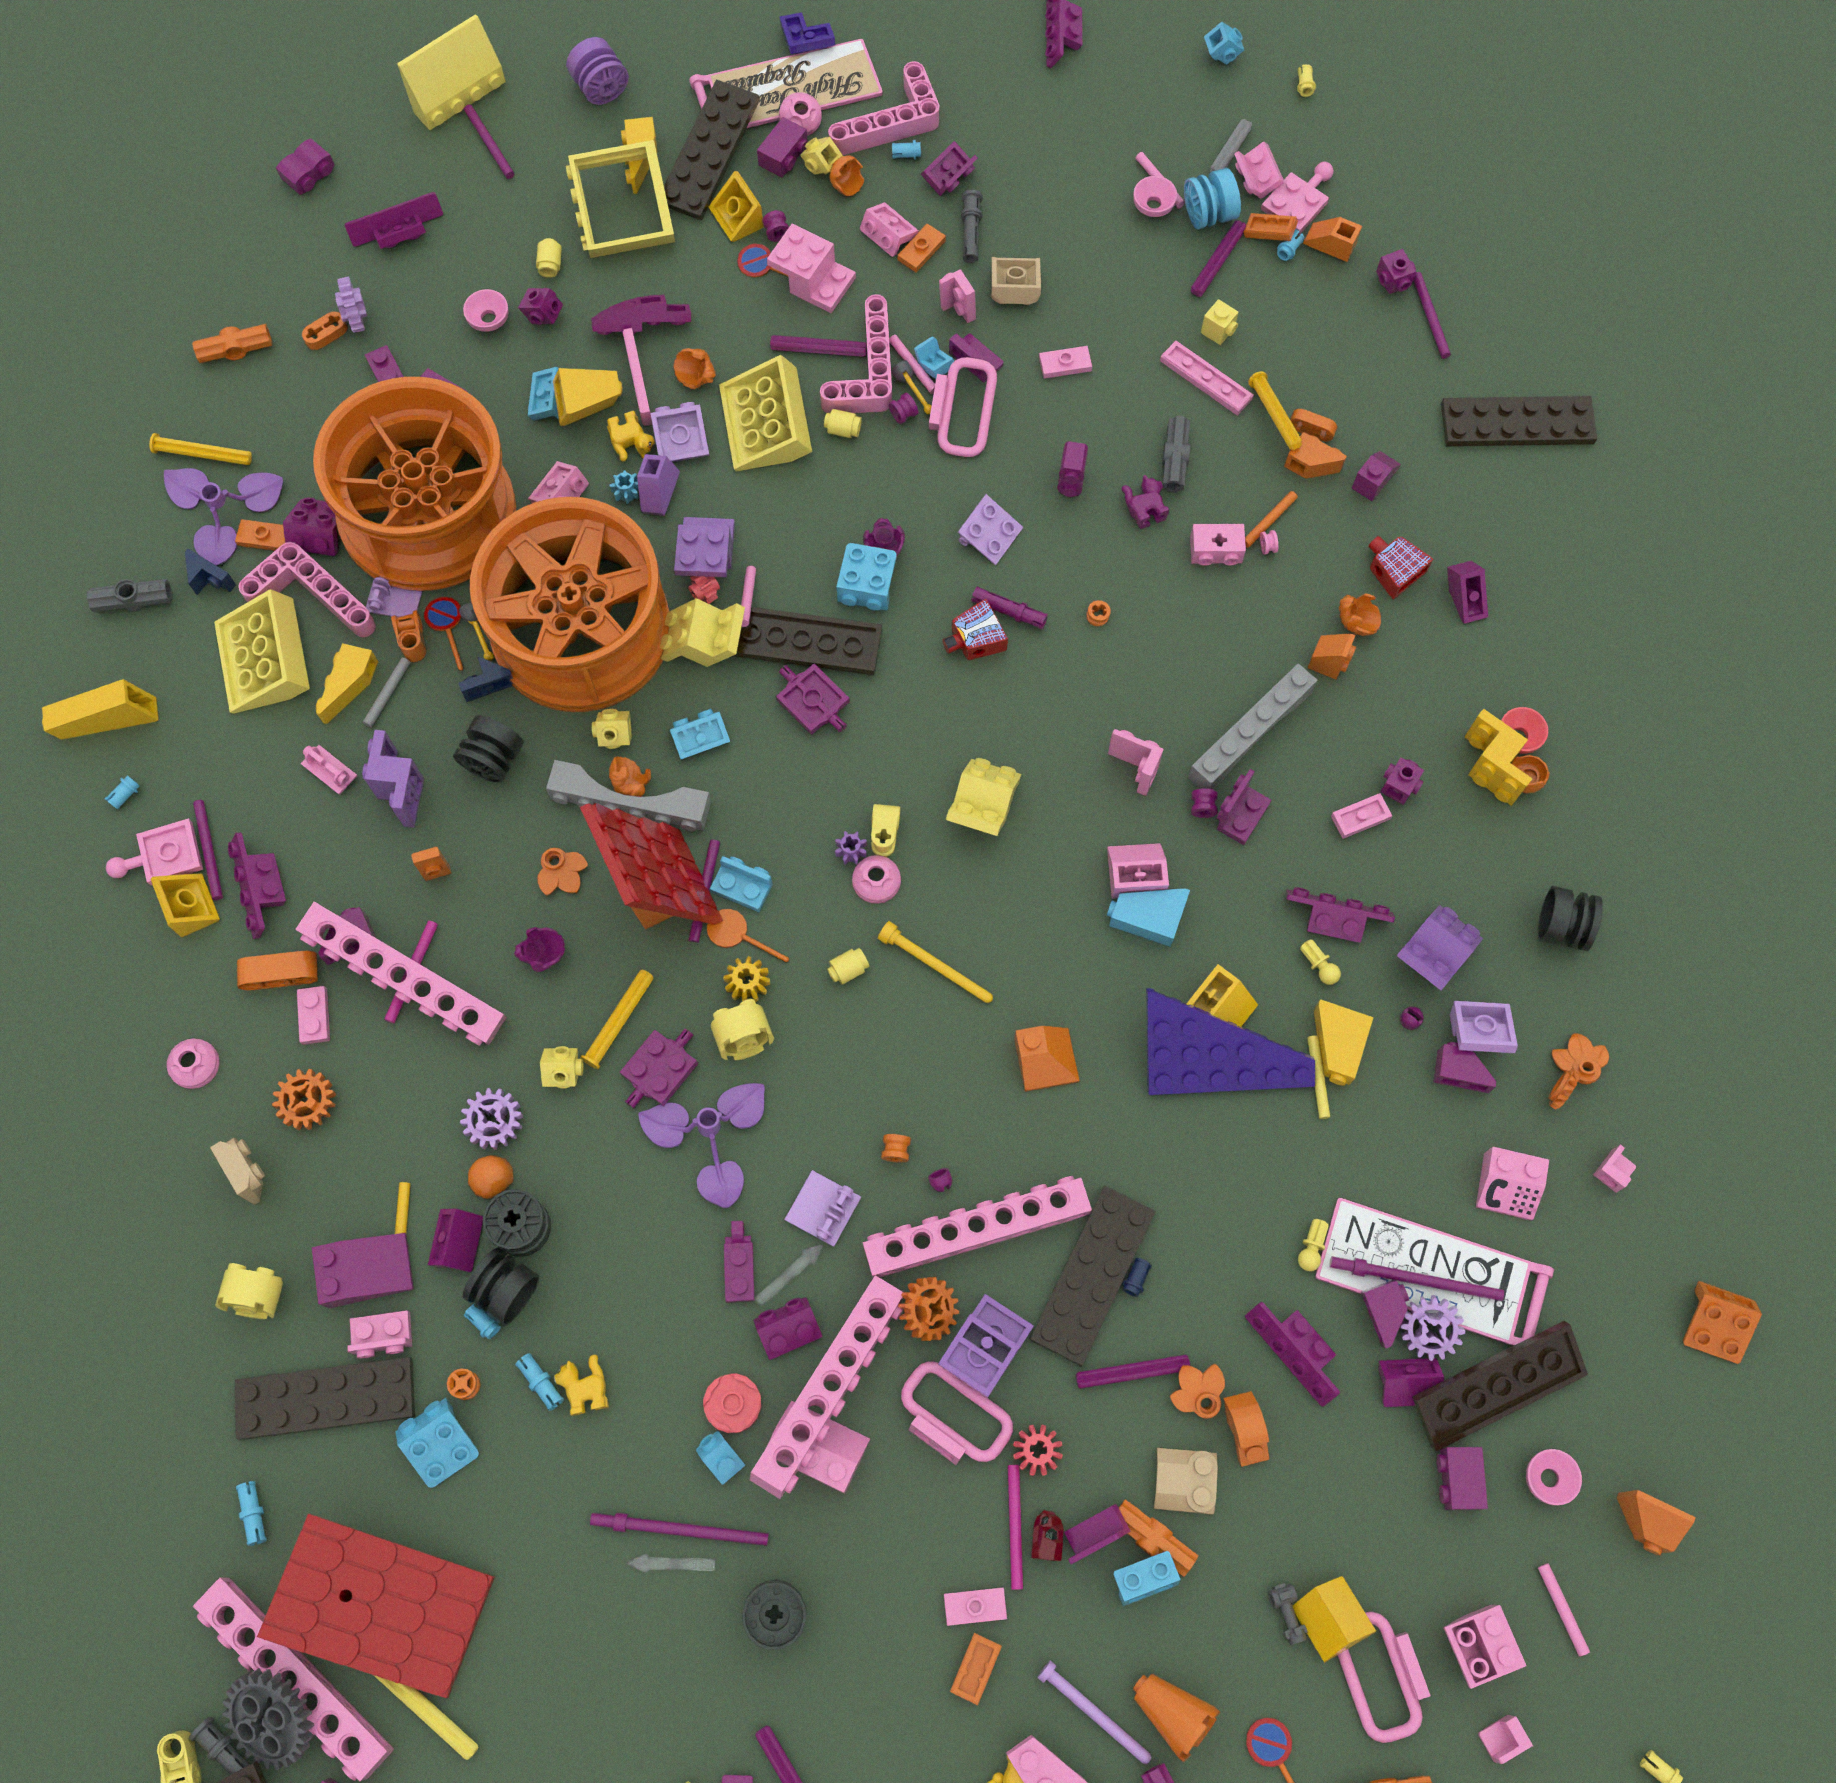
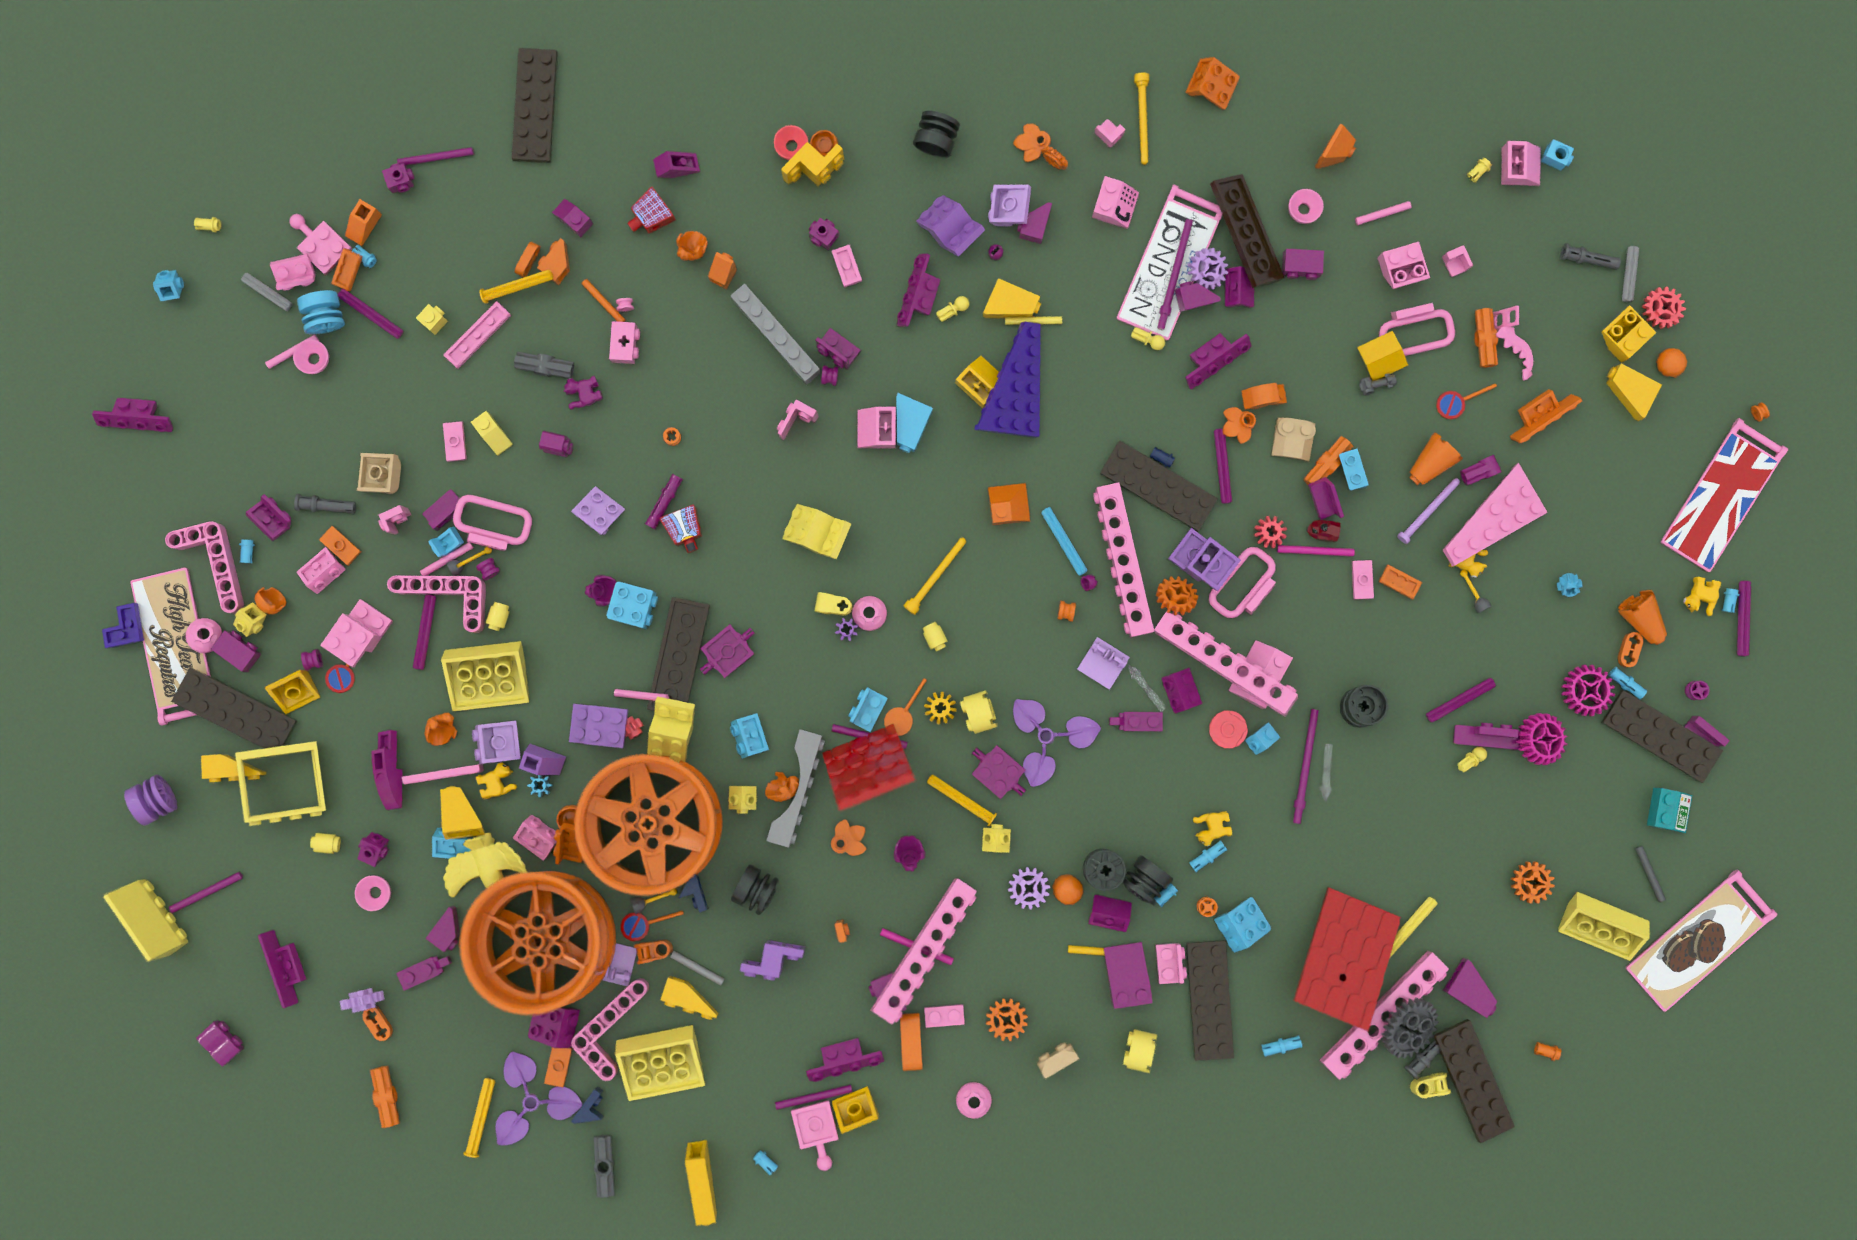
camera: 90 degrees left, 15 degrees up
(327, 768) = (757, 1009): bright pink hinge -> none
(526, 425) = (483, 861): none -> light yellow animal
(998, 1140) = (1064, 541): none -> medium azure axle
(1081, 399) = (491, 433): none -> light yellow slope
(1702, 1212) = (1141, 81): none -> yellow piece

